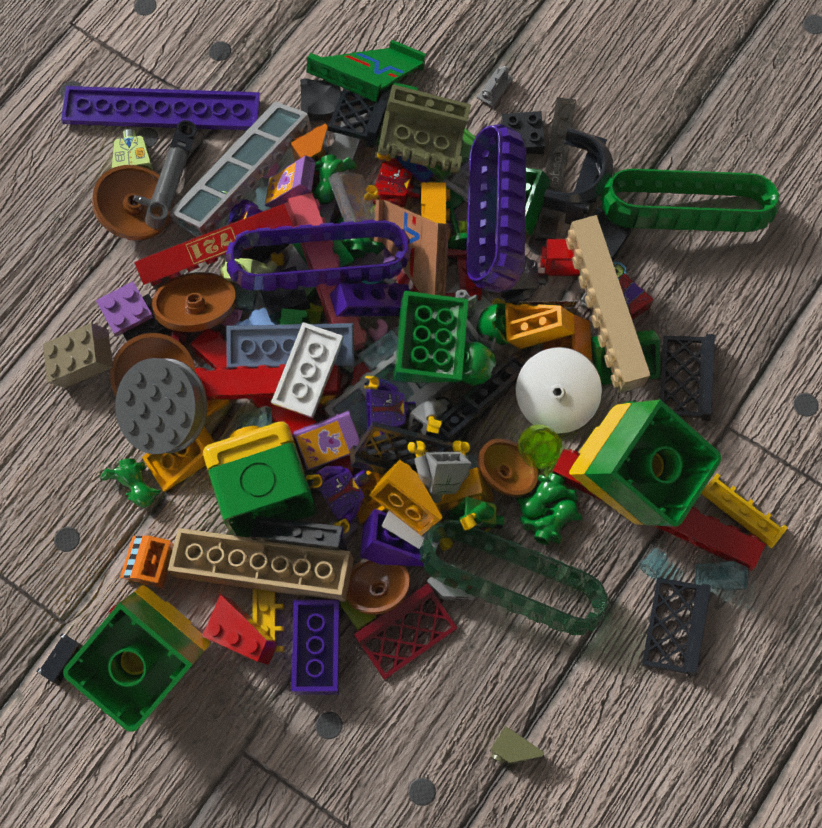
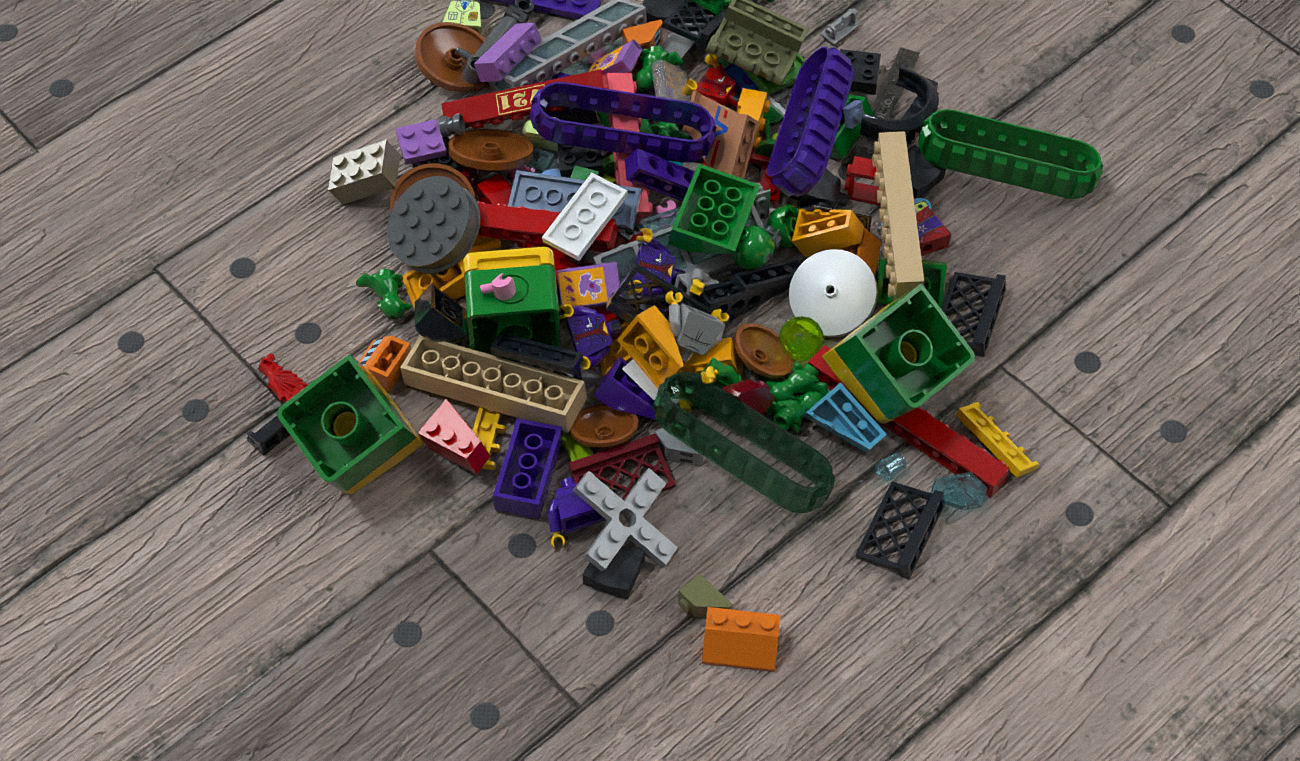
camera: 10 degrees right, 15 degrees down
(62, 608) = (281, 382): none -> red animal
(150, 284) = (452, 125): none -> dark grey wheel
(184, 191) = (507, 52): none -> medium lavender brick
(190, 501) = (439, 315): none -> black slope
(248, 483) = (502, 288): none -> bright pink piece
(374, 681) = (570, 512): none -> dark purple torso
(422, 734) = (619, 575): none -> black brick
(435, 693) = (633, 508): none -> light grey piece
(509, 525) = (752, 394): none -> dark red slope
(535, 192) = (853, 114): none -> sand blue plate
(559, 783) = (741, 639): none -> orange slope
(601, 526) = (846, 419): none -> medium azure wedge

